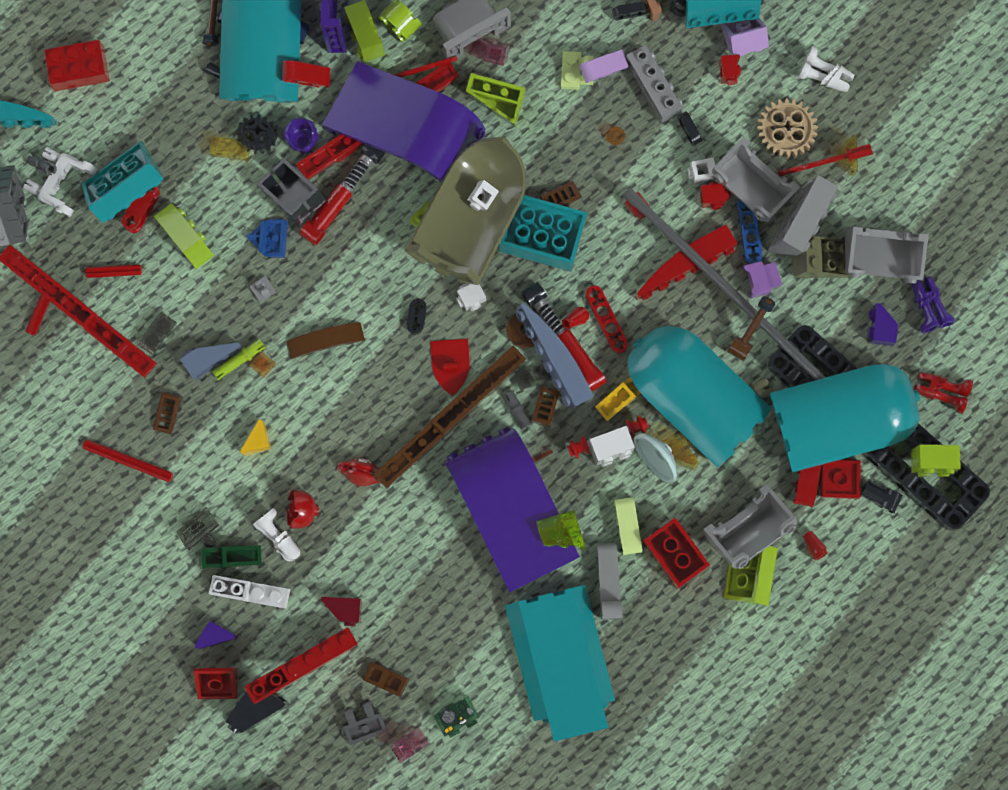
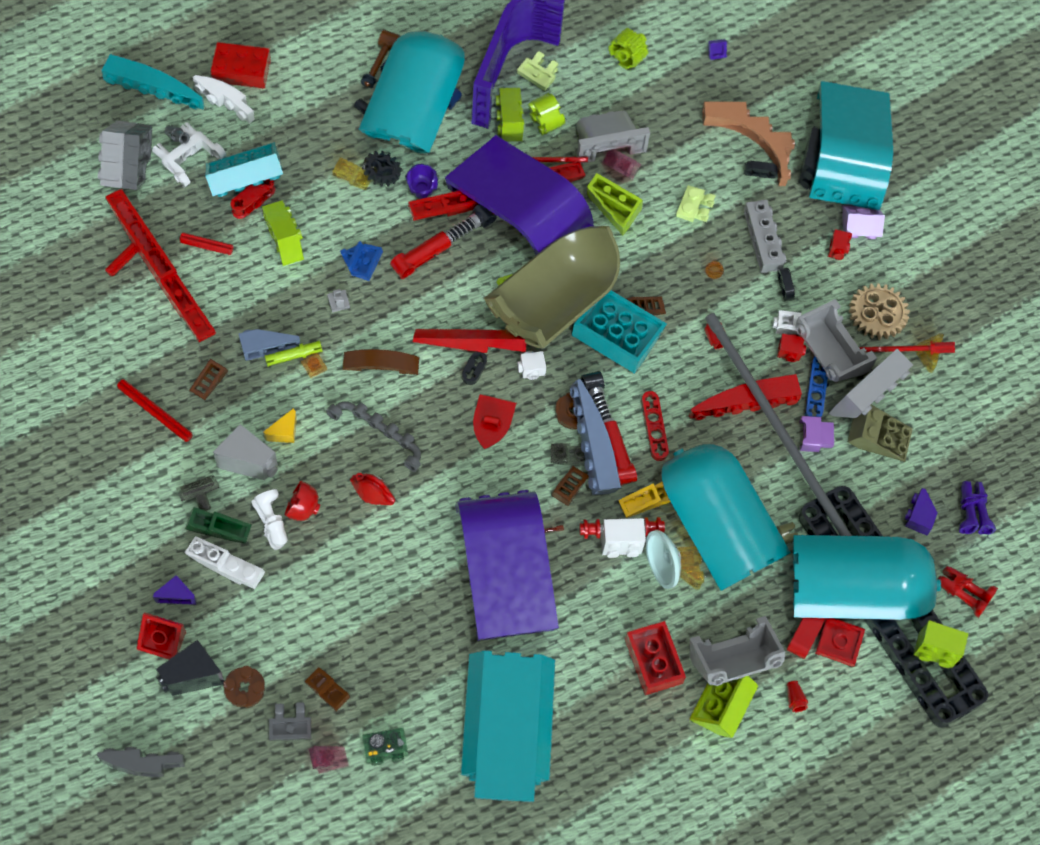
camera: 10 degrees right, 15 degrees down
(68, 103) = (222, 93): none -> white slope
(157, 333) = (225, 306): clear smoke slope -> none
(231, 480) = (246, 455): none -> light grey slope
(294, 193) = (399, 226): black piece -> none
(298, 703) = (242, 698): none -> reddish brown plate
(301, 665) = (251, 642): red slope -> none
(306, 74) = (445, 130): red beam -> none
(341, 403) = (375, 421): none -> dark grey bar
(344, 609) = (311, 608): dark red slope -> none
(401, 290) = (470, 339): none -> red slope
(449, 417) = (474, 465): reddish brown slope -> none
(487, 192) = (577, 275): white brick -> none
(517, 409) = (542, 479): dark grey pin -> none
(561, 531) = (549, 594): clear neon green slope -> none
(576, 317) = (626, 413): red cone -> none
(603, 66) = (722, 205): lavender beam -> none
(609, 581) = (579, 665): light grey beam -> none
(628, 526) = (615, 619): yellowish green beam -> none
(740, 346) = (777, 488): reddish brown piece -> none
(834, 72) = (937, 281): white piece -> none
(883, 497) = (881, 674): black piece -> none
(885, 253) = (942, 445): light grey windscreen -> none

